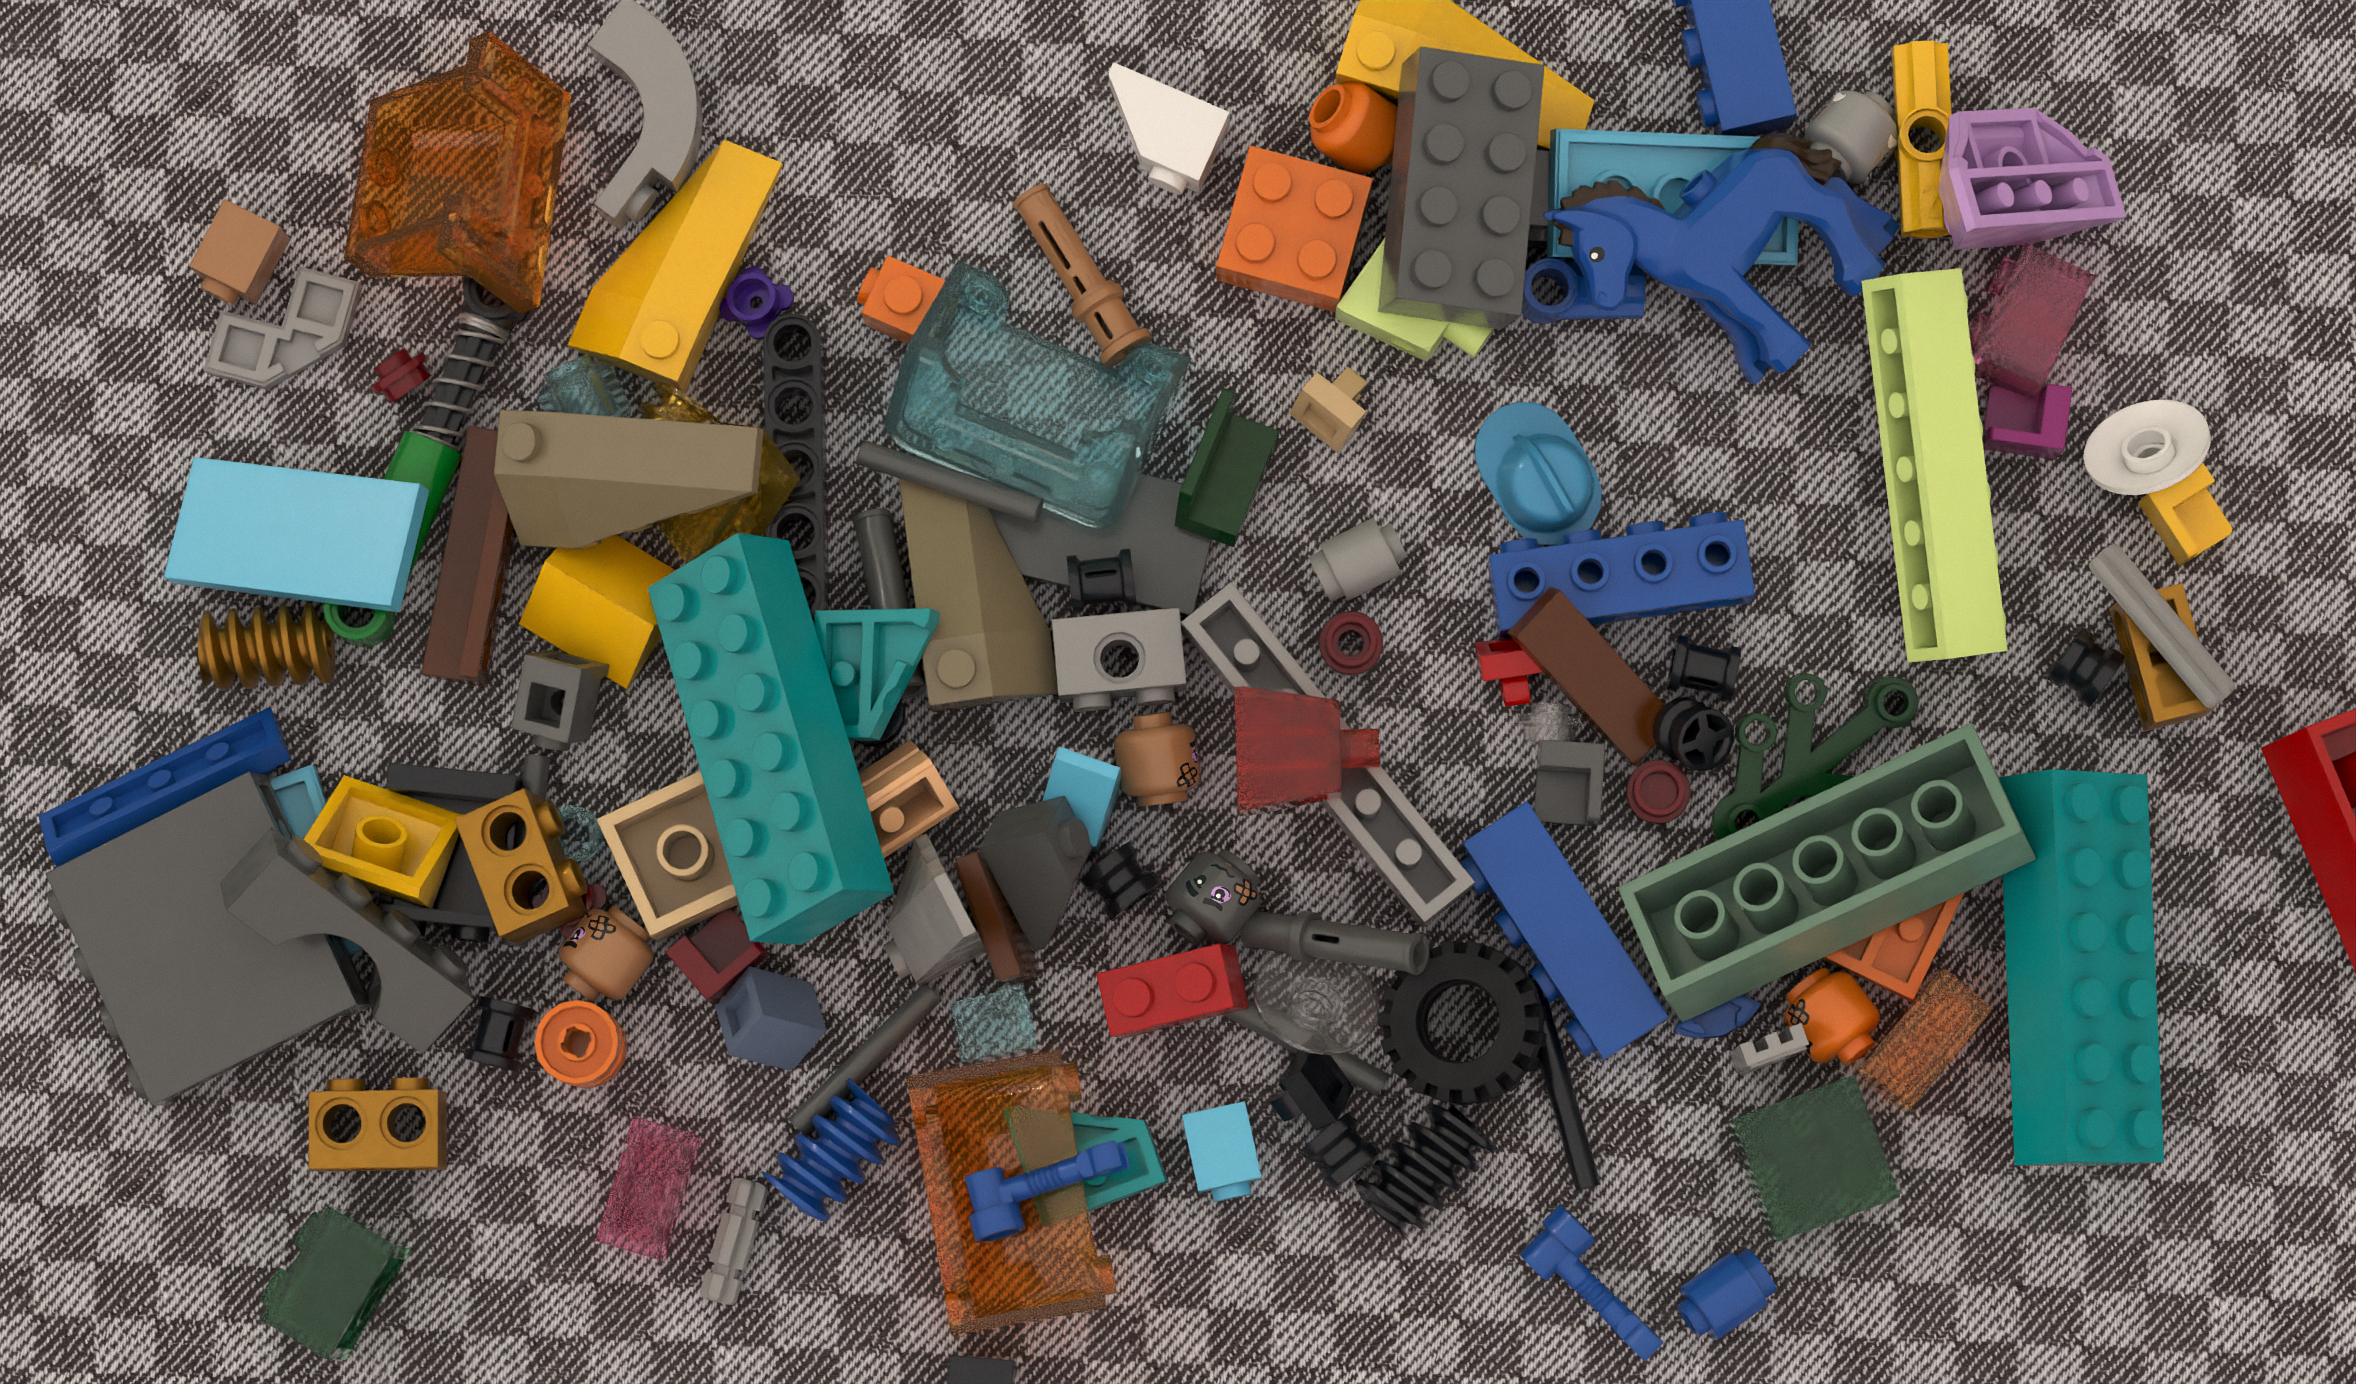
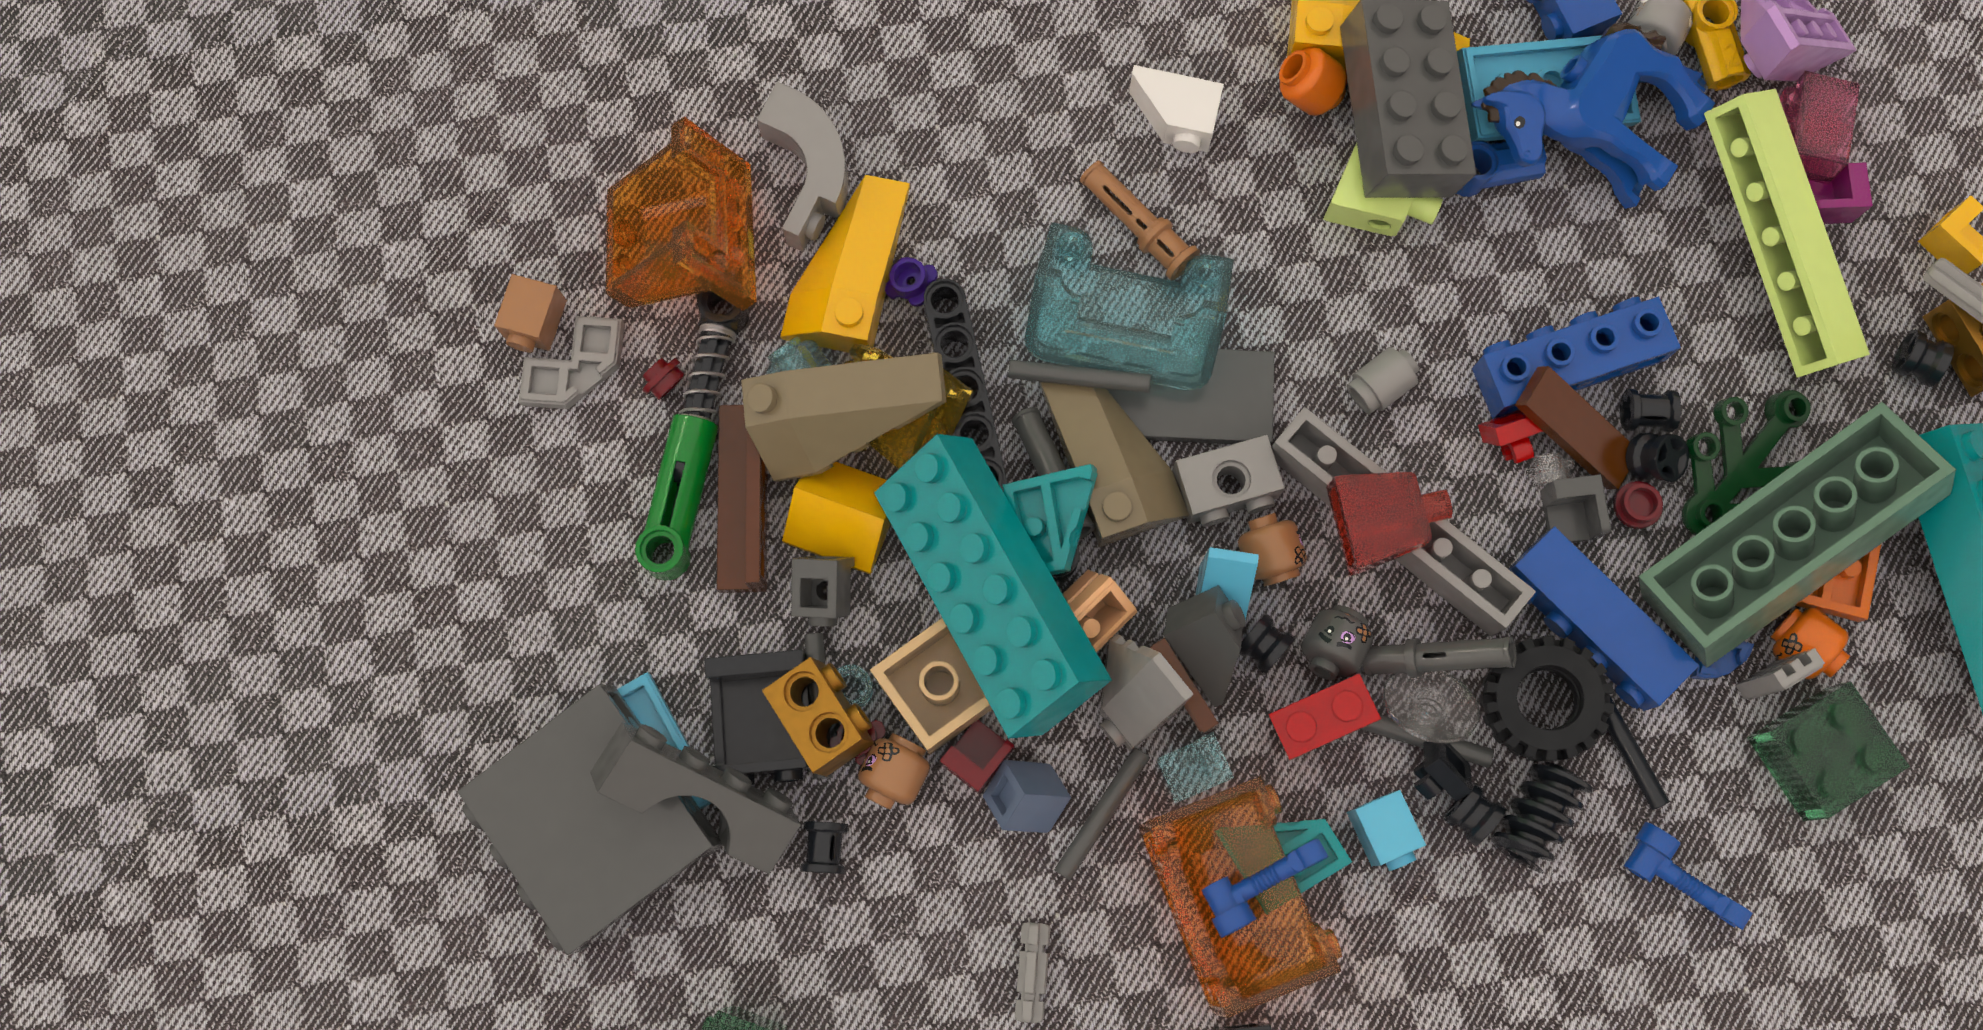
camera: 15 degrees left, 5 degrees down
(163, 785) = (535, 709): blue plate -> none
(265, 649) = (597, 592): pearl gold piece -> none
(296, 534) = (606, 503): medium azure tile -> none
(377, 1143) = (746, 949): pearl gold brick -> none
(385, 840) = (712, 717): yellow slope -> none
(580, 1044) = (887, 843): orange wheel -> none
(648, 1188) = (961, 946): clear pink brick -> none
(834, 1153) = (1096, 889): blue piece -> none
(897, 298) = (1015, 258): orange brick -> none
(1101, 580) = (1205, 426): black bush -> none
(1225, 474) = (1276, 337): dark green panel -> none
(1294, 229) = (1285, 158): orange brick -> none
(1331, 408) = (1339, 277): tan tile -> none
(1354, 623) = (1400, 431): dark red plate -> none
(1537, 472) = (1493, 297): dark azure piece -> none
(1725, 1294) = (1787, 866): blue brick -> none
(1923, 1039) = (1886, 646): clear orange brick -> none
(2147, 447) = (1925, 196): white dish -> none

